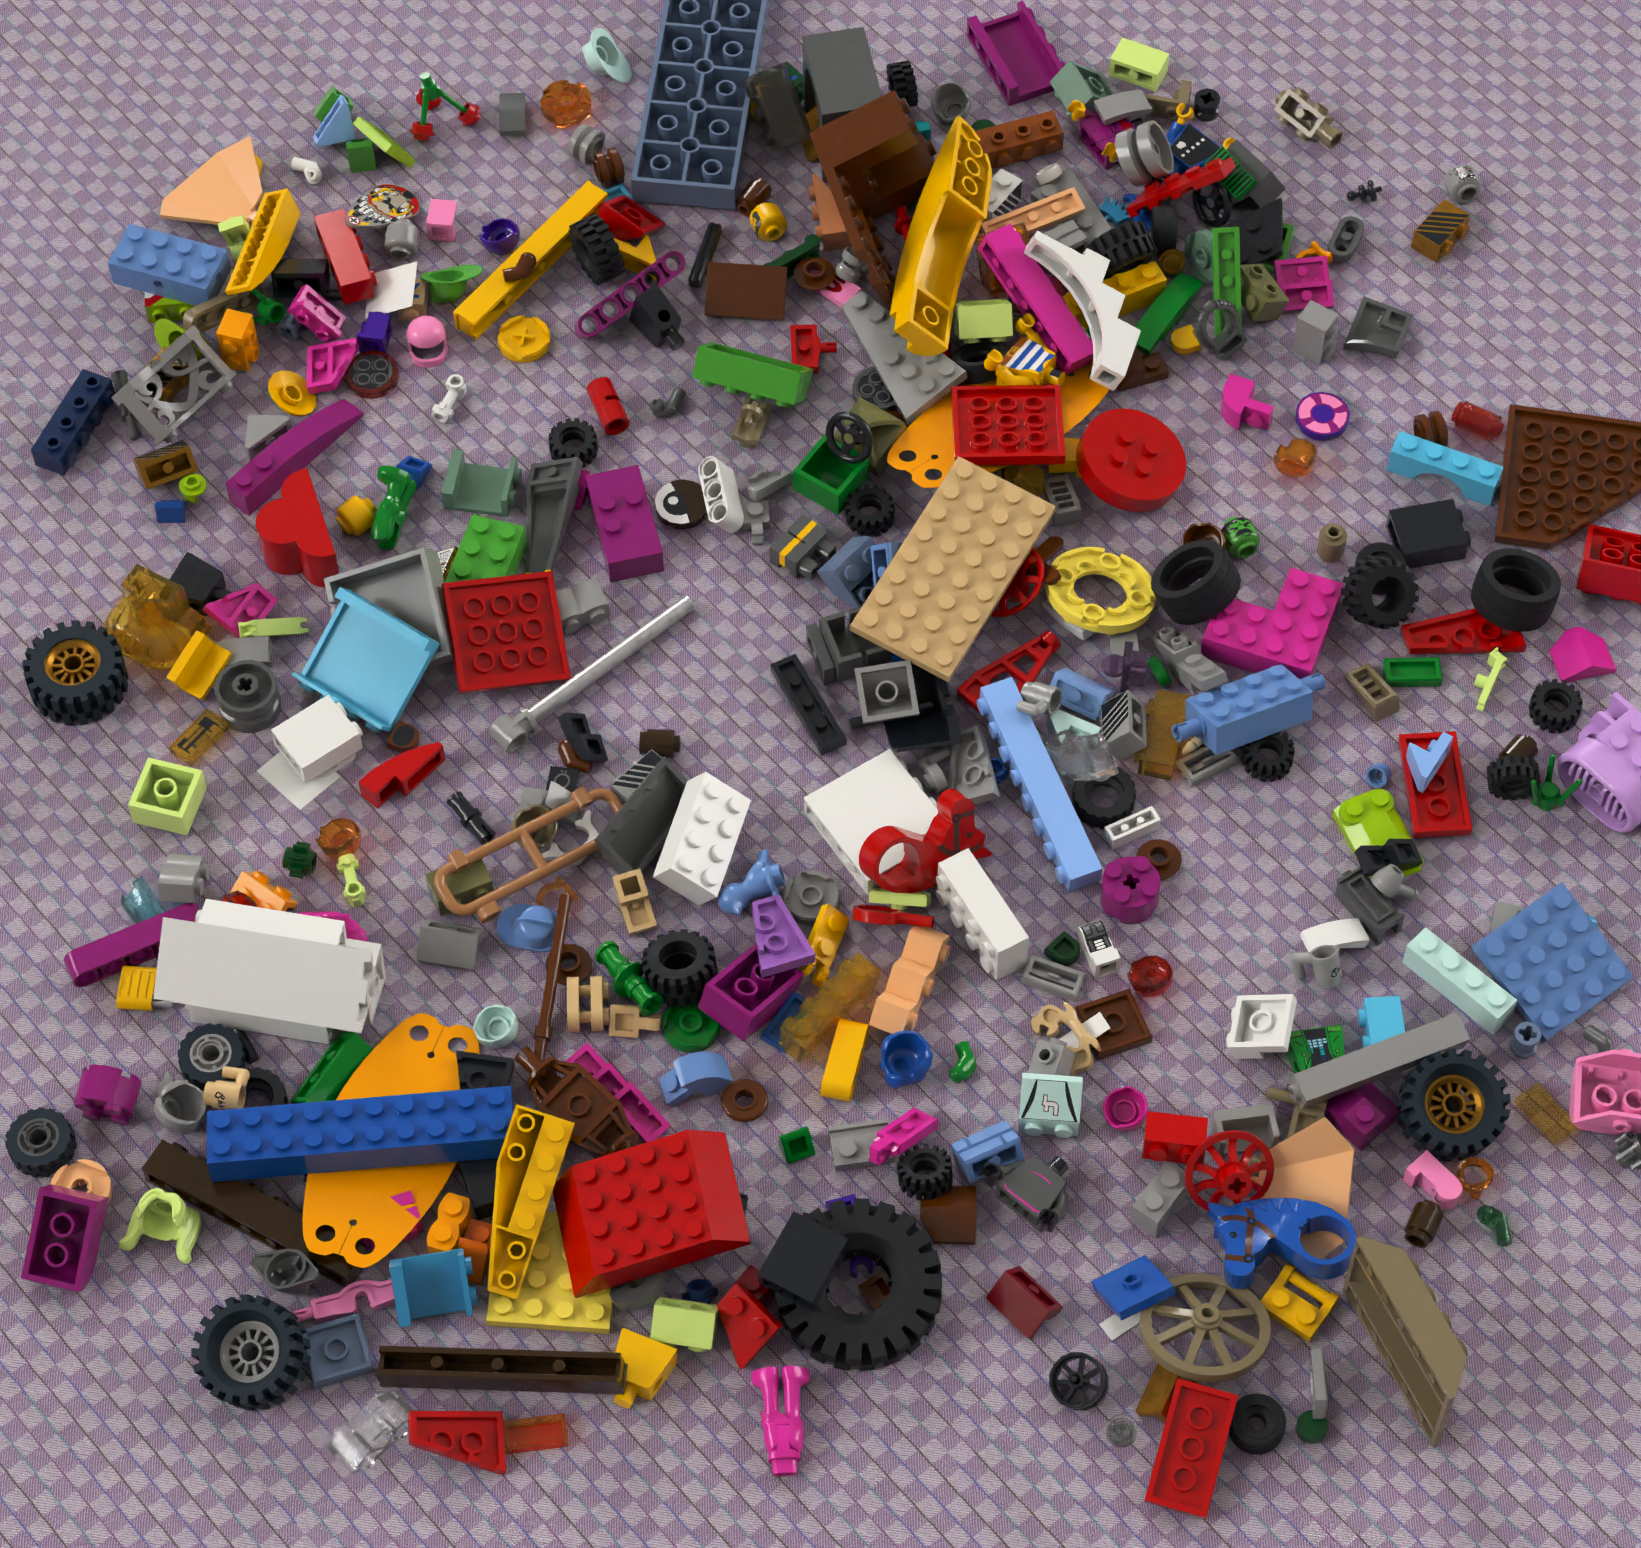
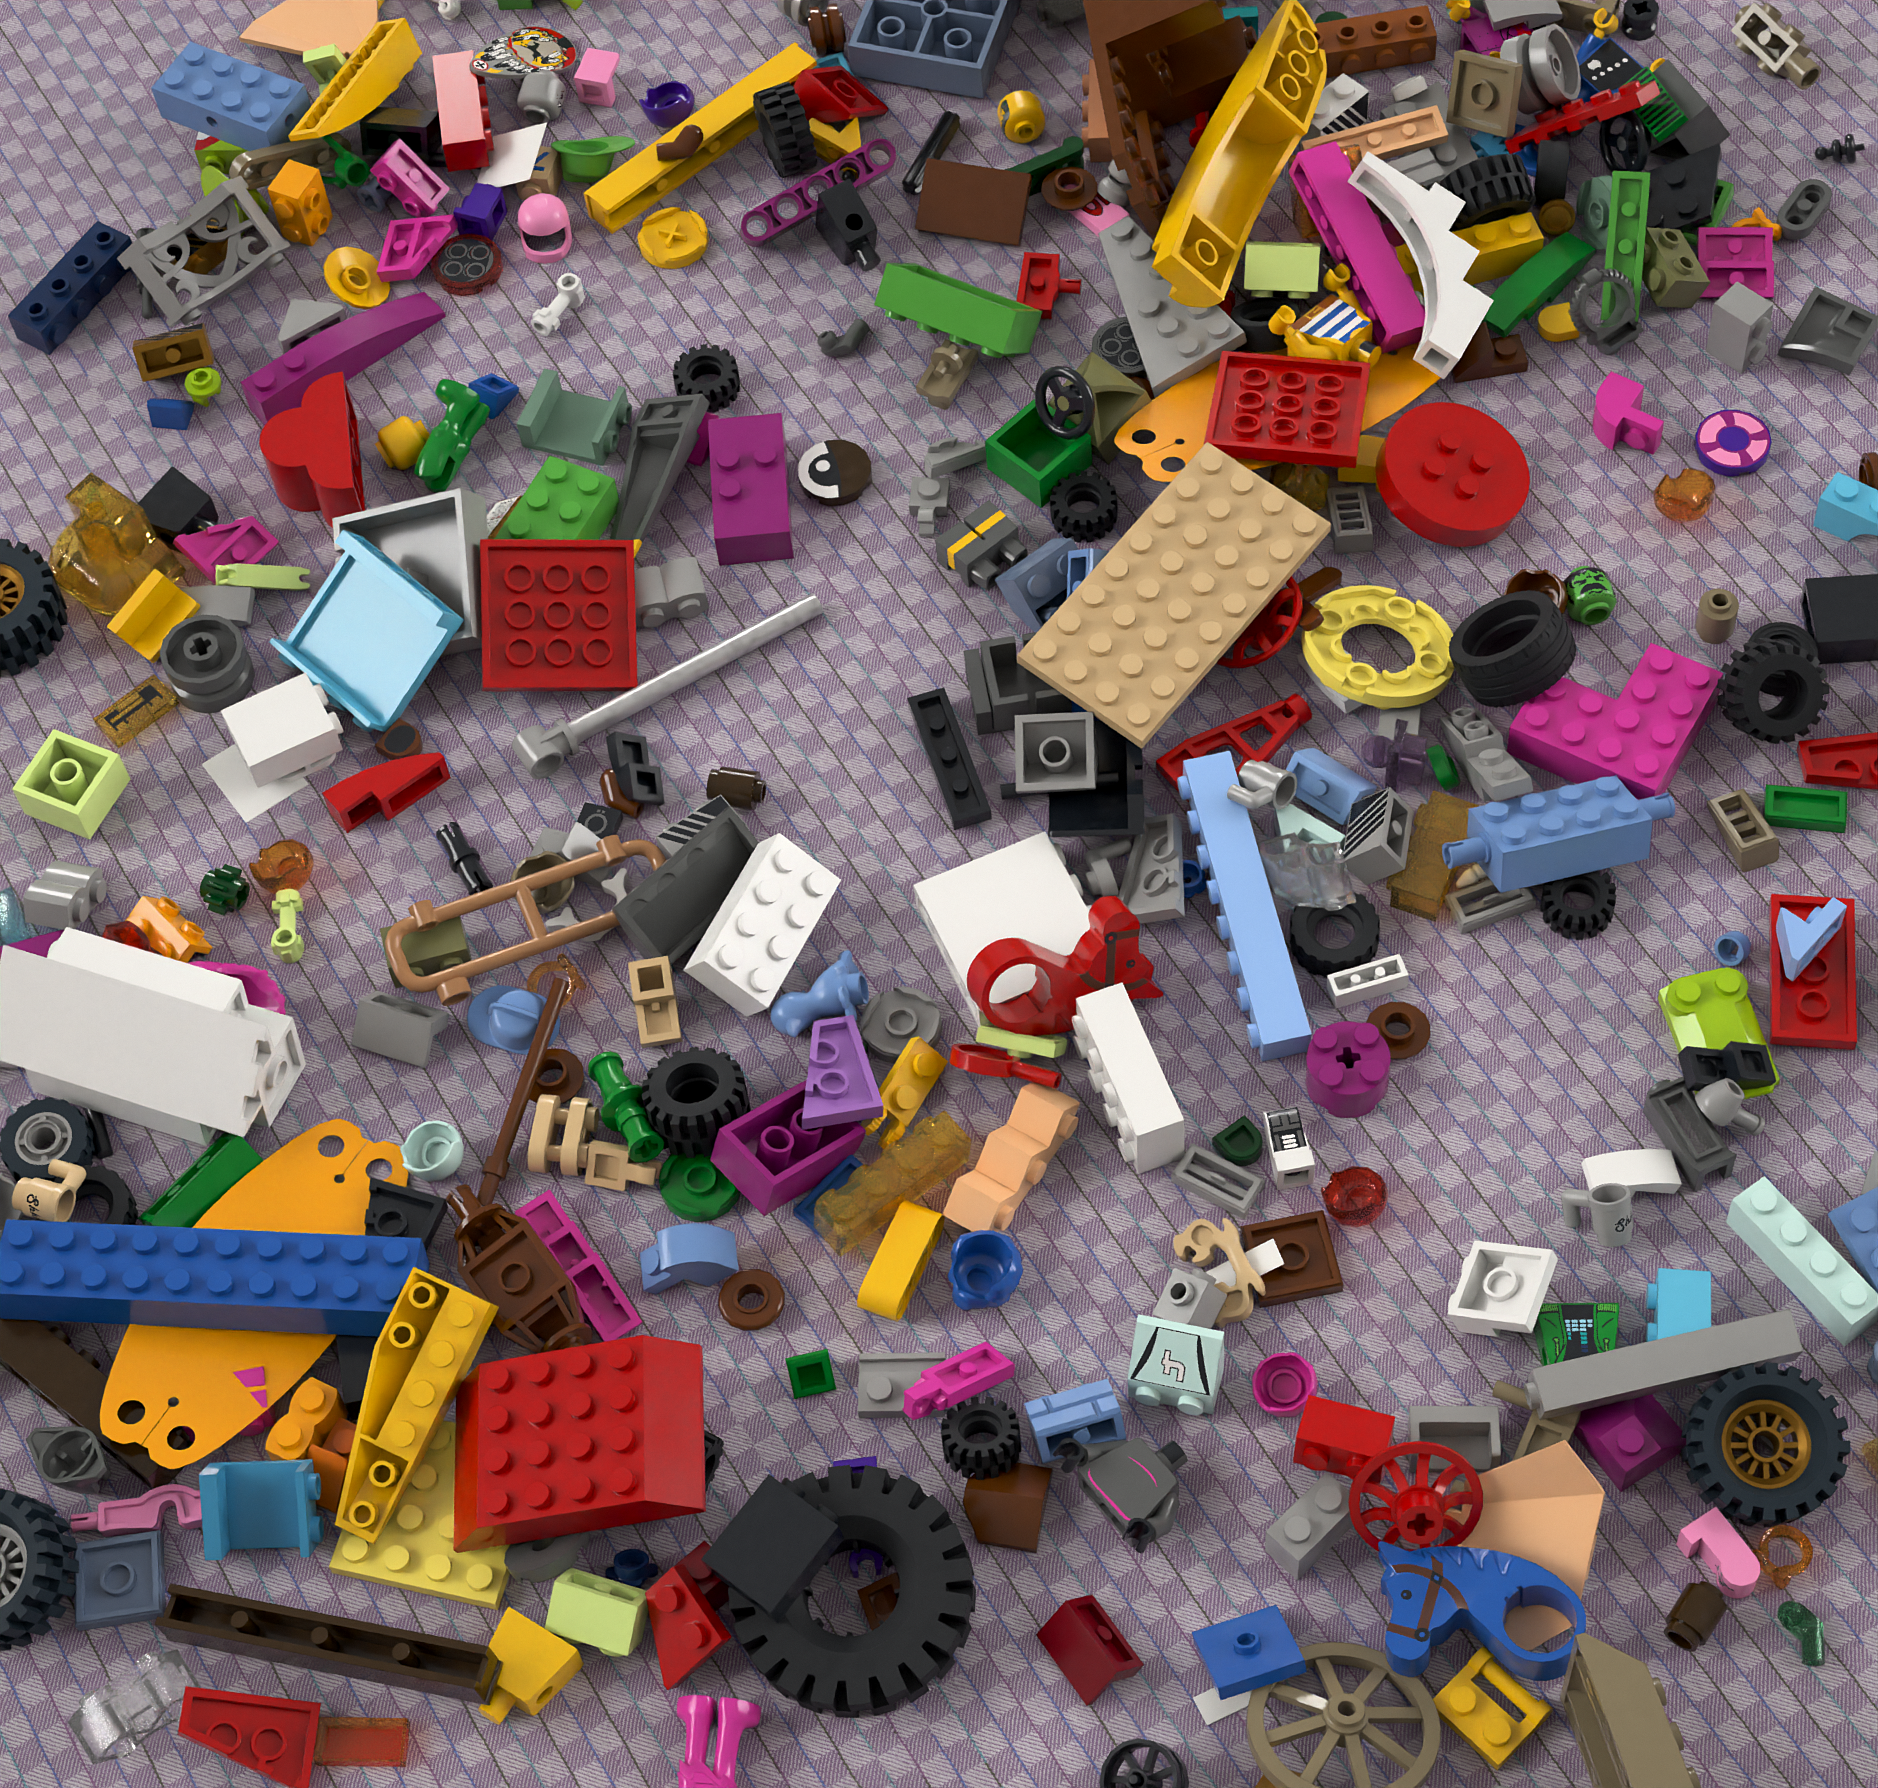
camera: 15 degrees right, 0 degrees up
(608, 406) = (762, 334): red pin -> none
(721, 494) = (886, 464): white beam -> none
(754, 193) = (1010, 78): reddish brown brick -> none
(966, 1064) = (1070, 1289): green arm -> none
(1107, 175) = (1484, 93): none -> dark tan plate

